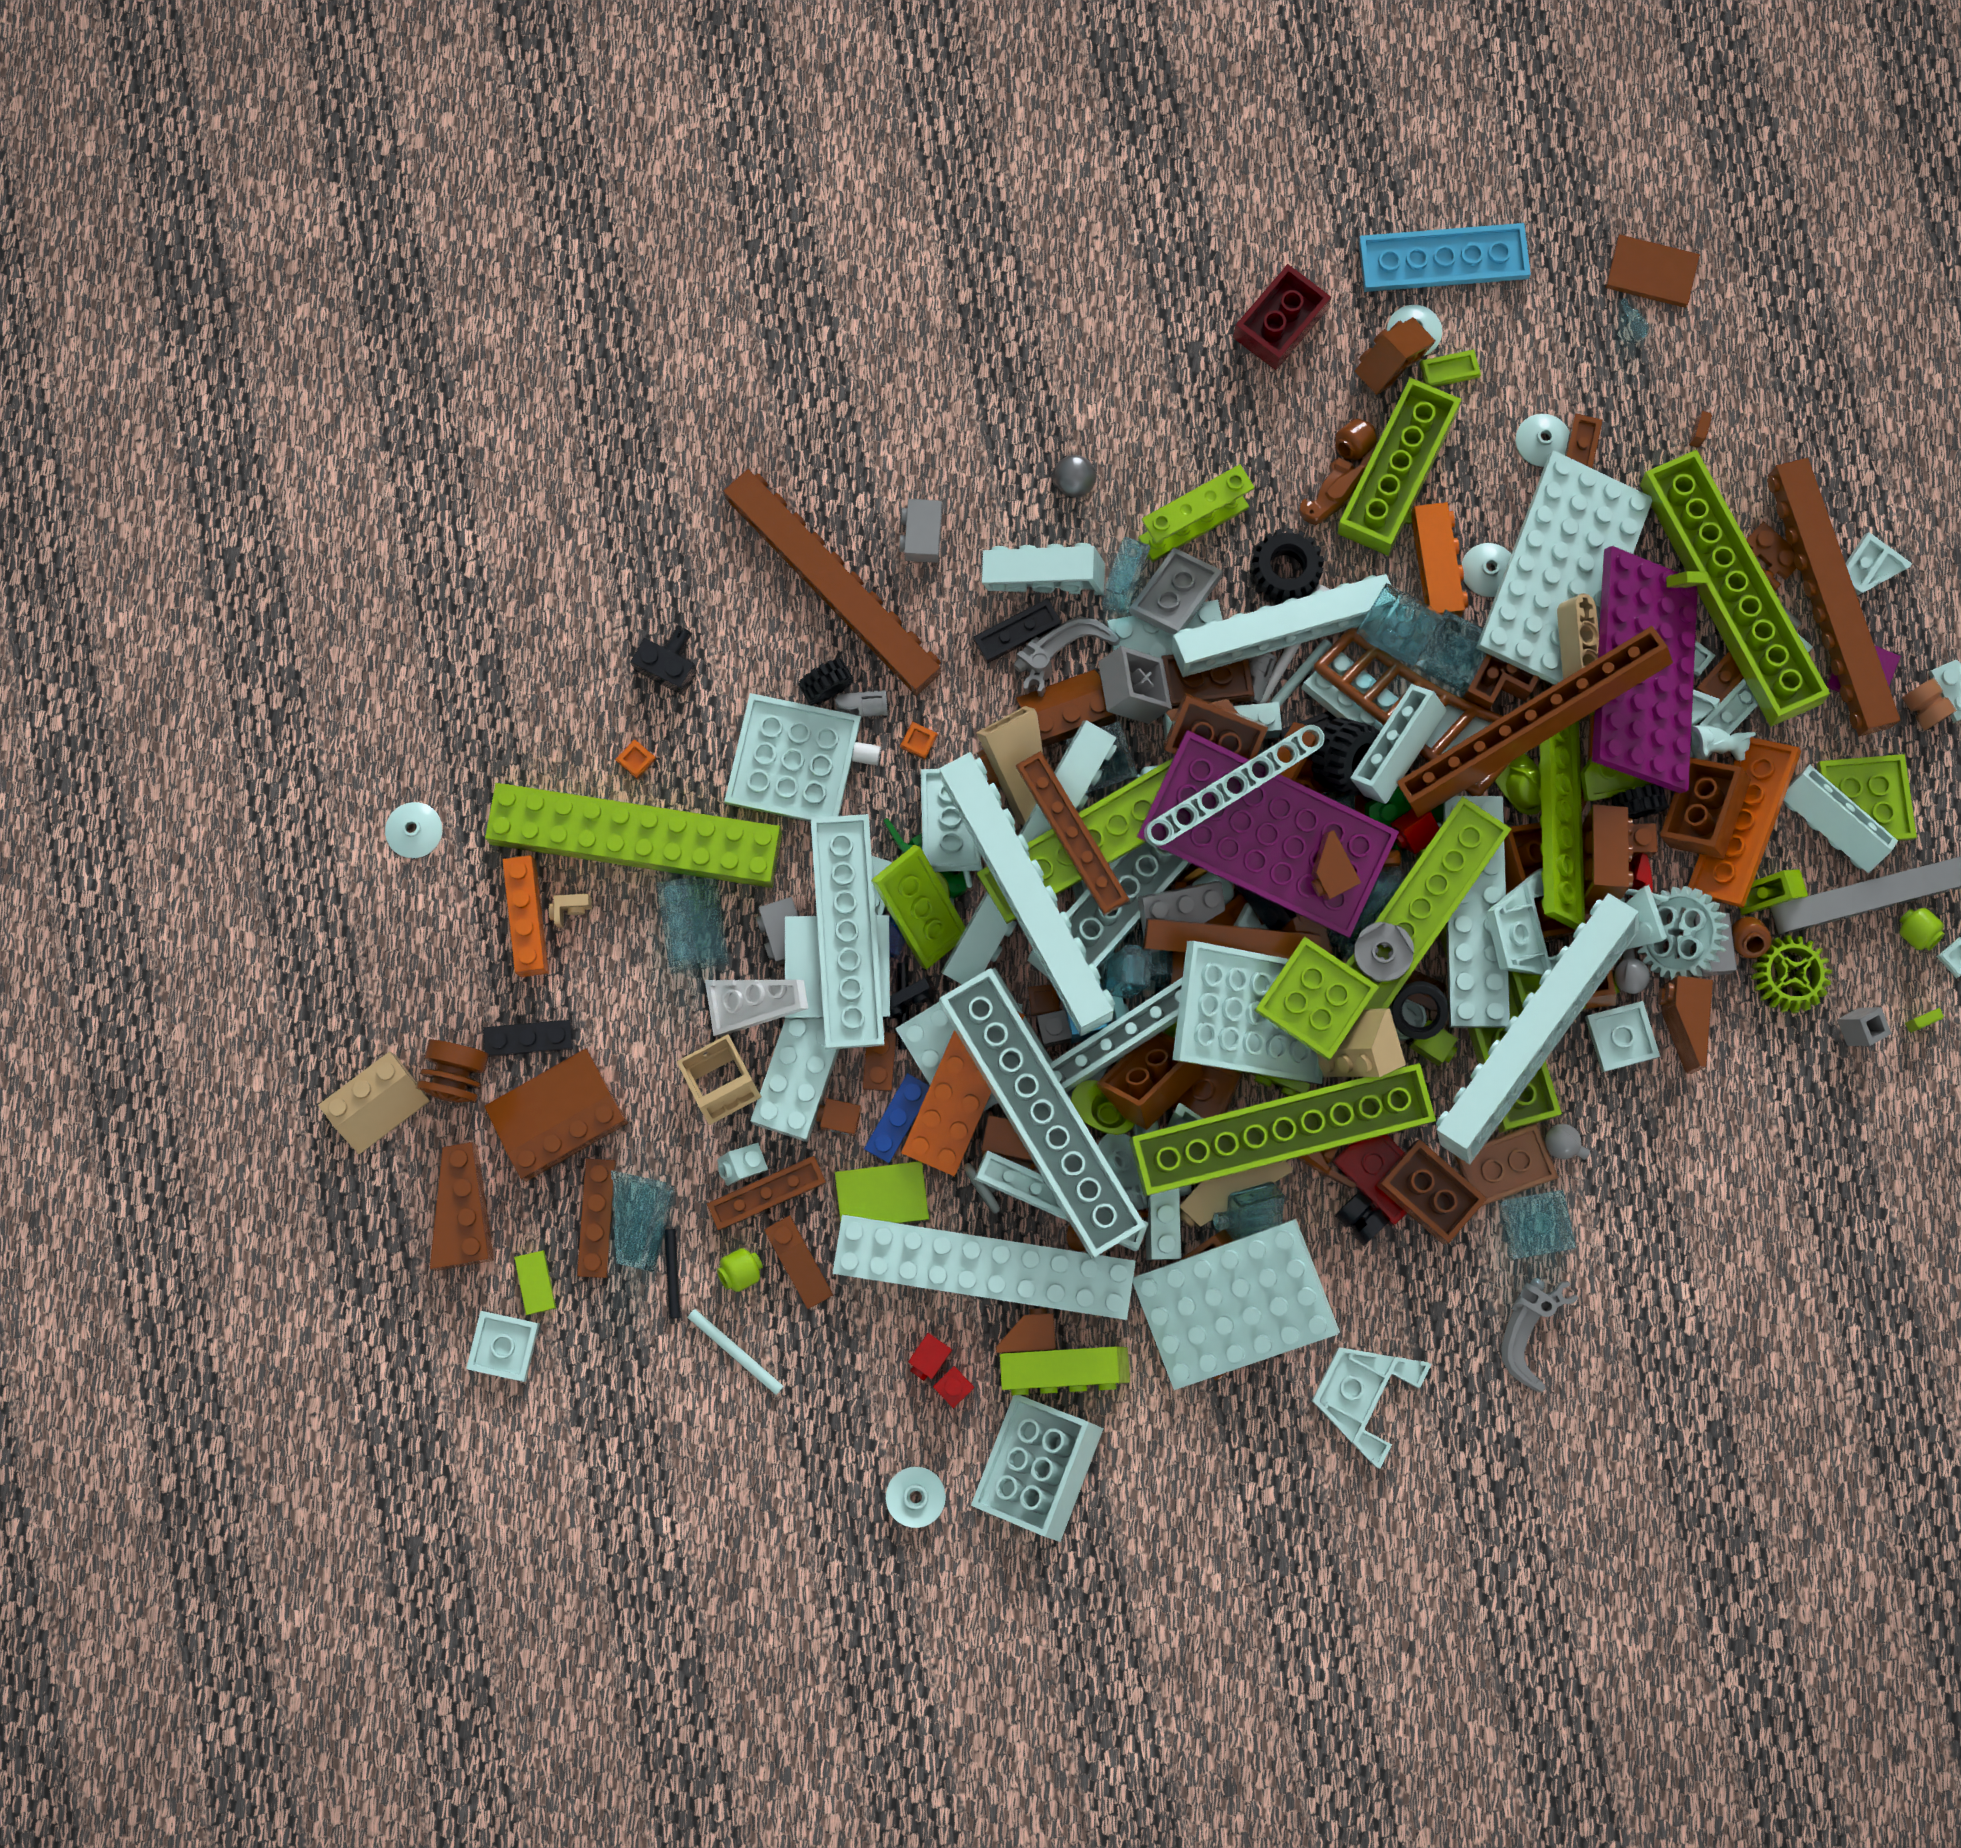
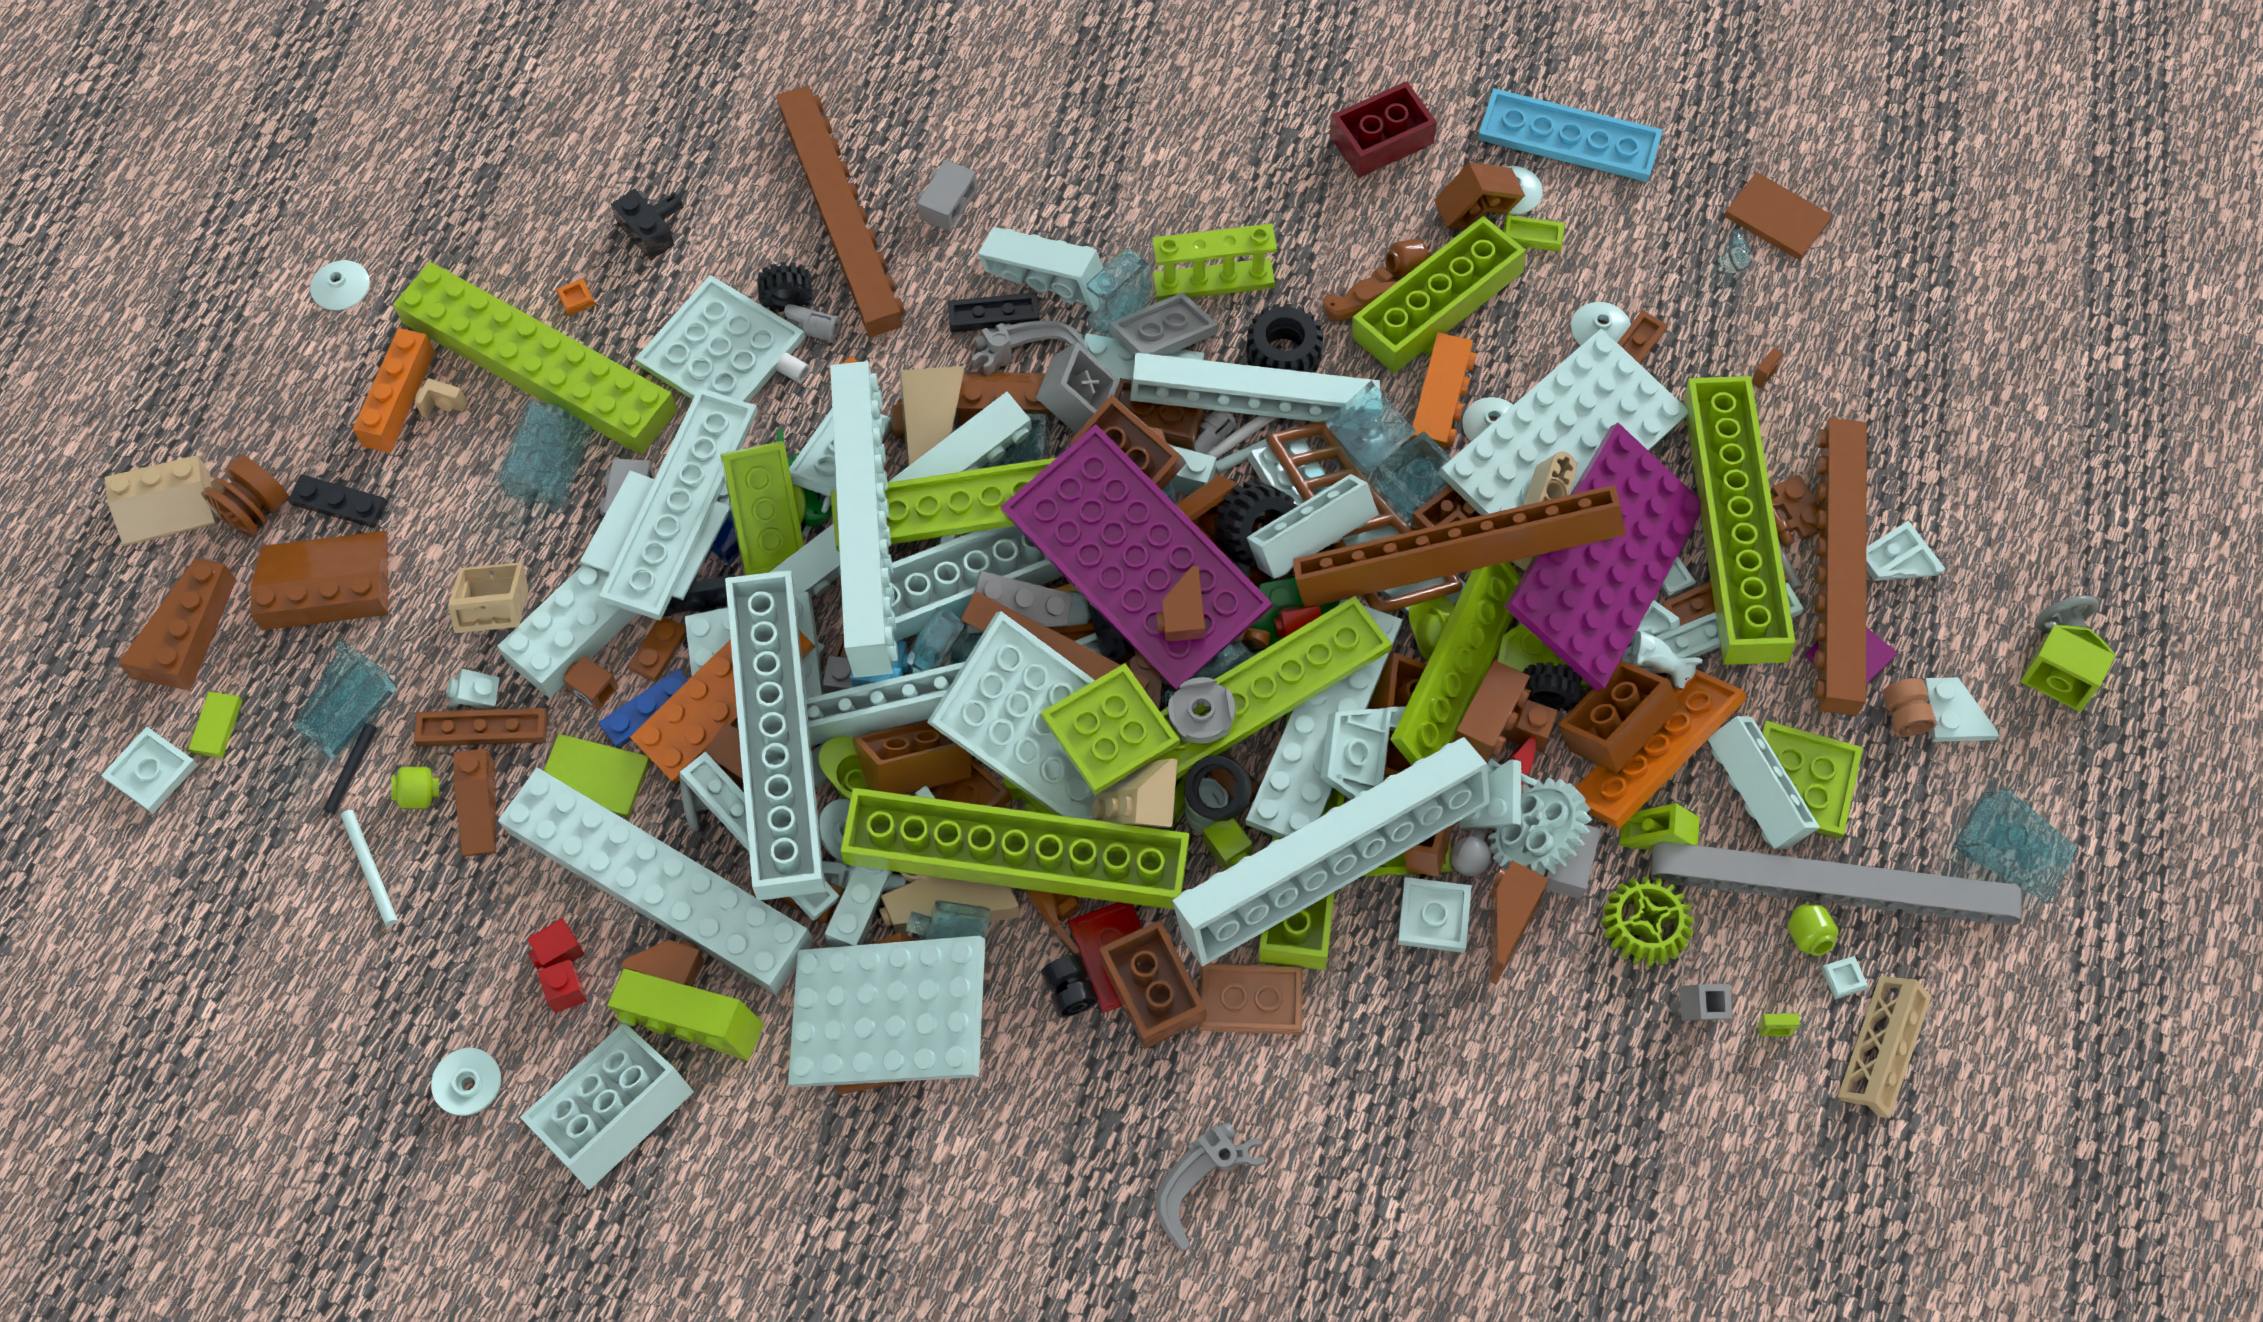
camera: 25 degrees right, 15 degrees down
(596, 1219) = (280, 723): dark orange plate -> none
(748, 1003) = (561, 538): white wing -> none
(1072, 833) = (941, 488): dark orange tile -> none
(1074, 476) = (1117, 200): flat silver hair -> none
(1246, 778) = (1104, 500): light aqua beam -> none
(1352, 1392) = (977, 1162): light aqua wing -> none
(1537, 1225) = (1253, 1066): clear light blue brick -> none
(1565, 1142) = (1322, 996): light grey piece -> none
(1687, 579) = (1688, 487): lime tile -> none
(1751, 937) = (1616, 875): dark orange head -> none

